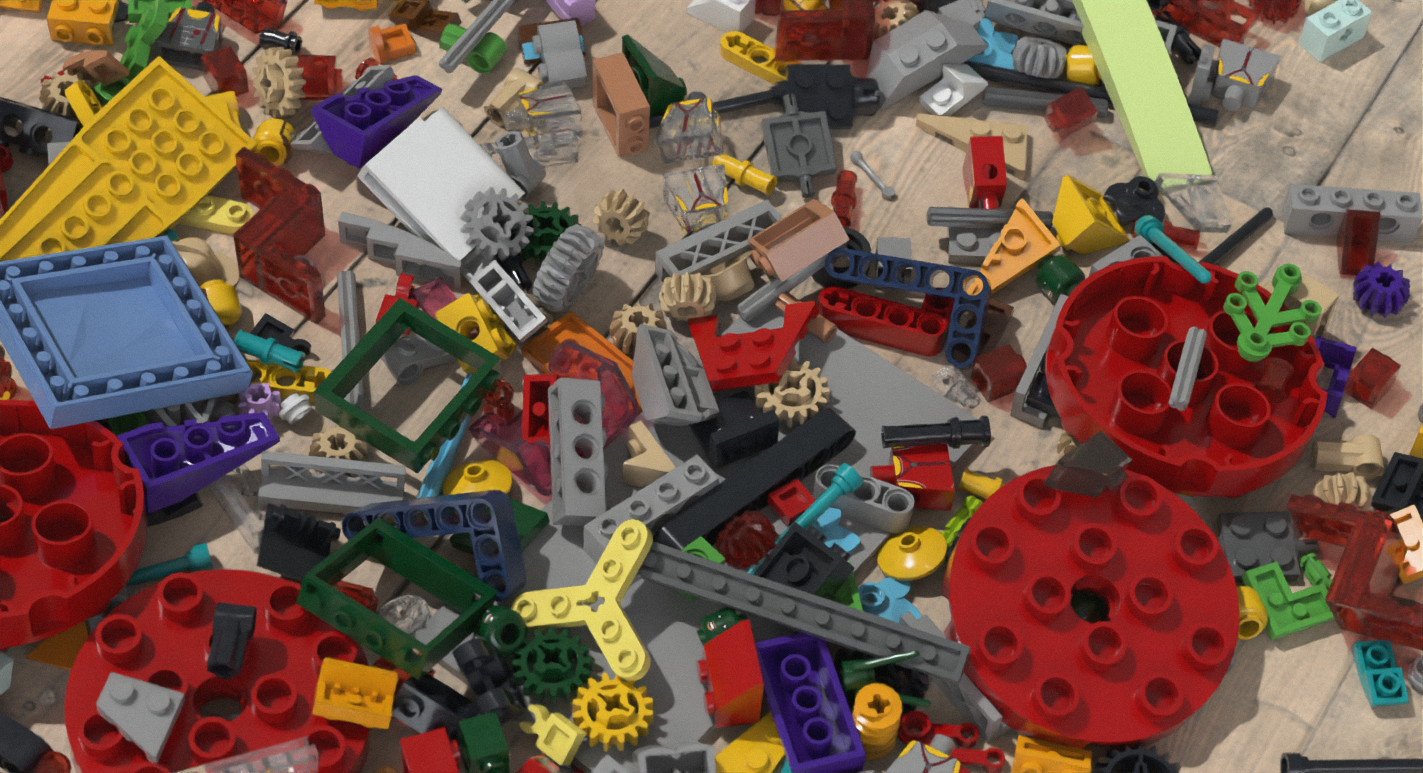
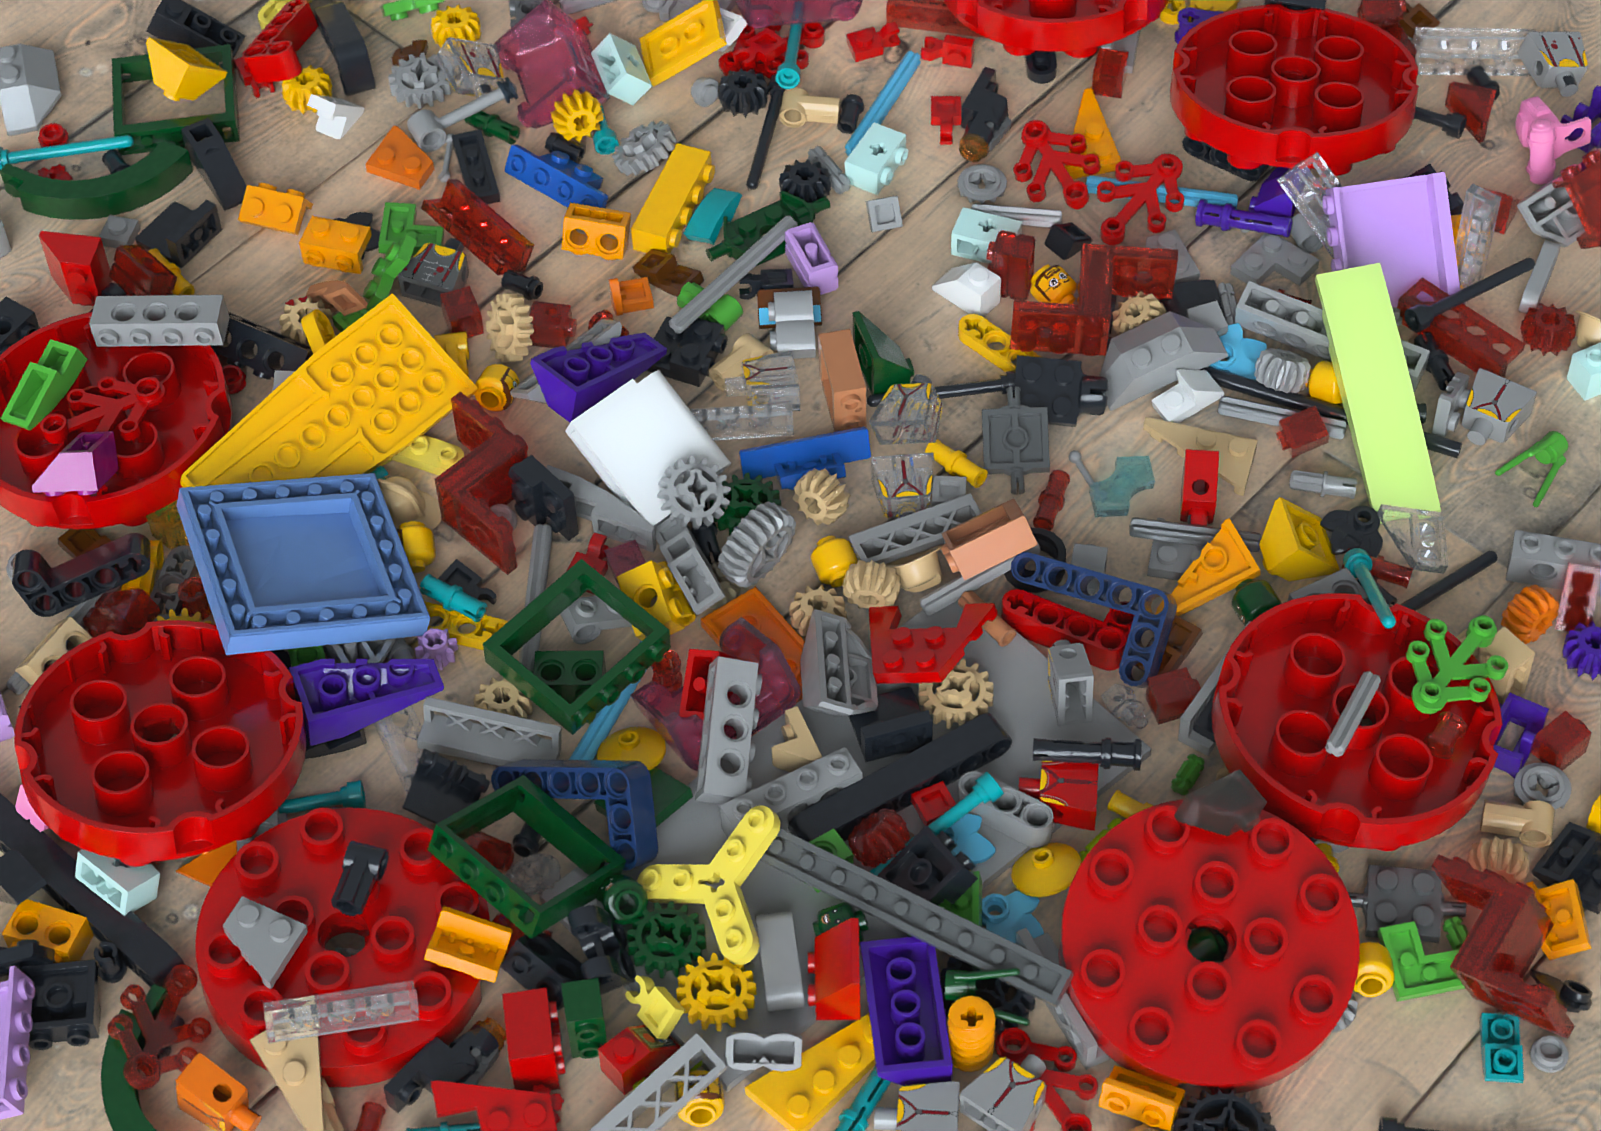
camera: 15 degrees right, 0 degrees up
(295, 408) = (469, 656): white plate -> none
(344, 243) = (543, 497): none -> black plate
(388, 584) = (526, 842): none -> black pin
(403, 410) = (569, 670): none -> dark green brick
(463, 90) = (690, 352): none -> black plate
(518, 162) = (729, 430): light grey piece -> none
(524, 16) = (765, 280): none -> black plate
(590, 182) = (796, 457): none -> blue bracket
(644, 277) = (832, 560): none -> yellow head
(671, 674) = (779, 961): none -> light grey beam
(742, 198) = (947, 488): none -> light grey plate
(900, 356) = (1070, 666): none -> light grey torso
(902, 188) = (1113, 494): none -> clear light blue tile
(1028, 447) = (1187, 774): none -> bright green piece
(1098, 160) = (1323, 484): none -> light grey axle
(1297, 110) = (1547, 450): none -> bright green plant
(1320, 257) = (1530, 613): none -> orange gear
(1365, 412) = (1549, 777): none -> light grey gear

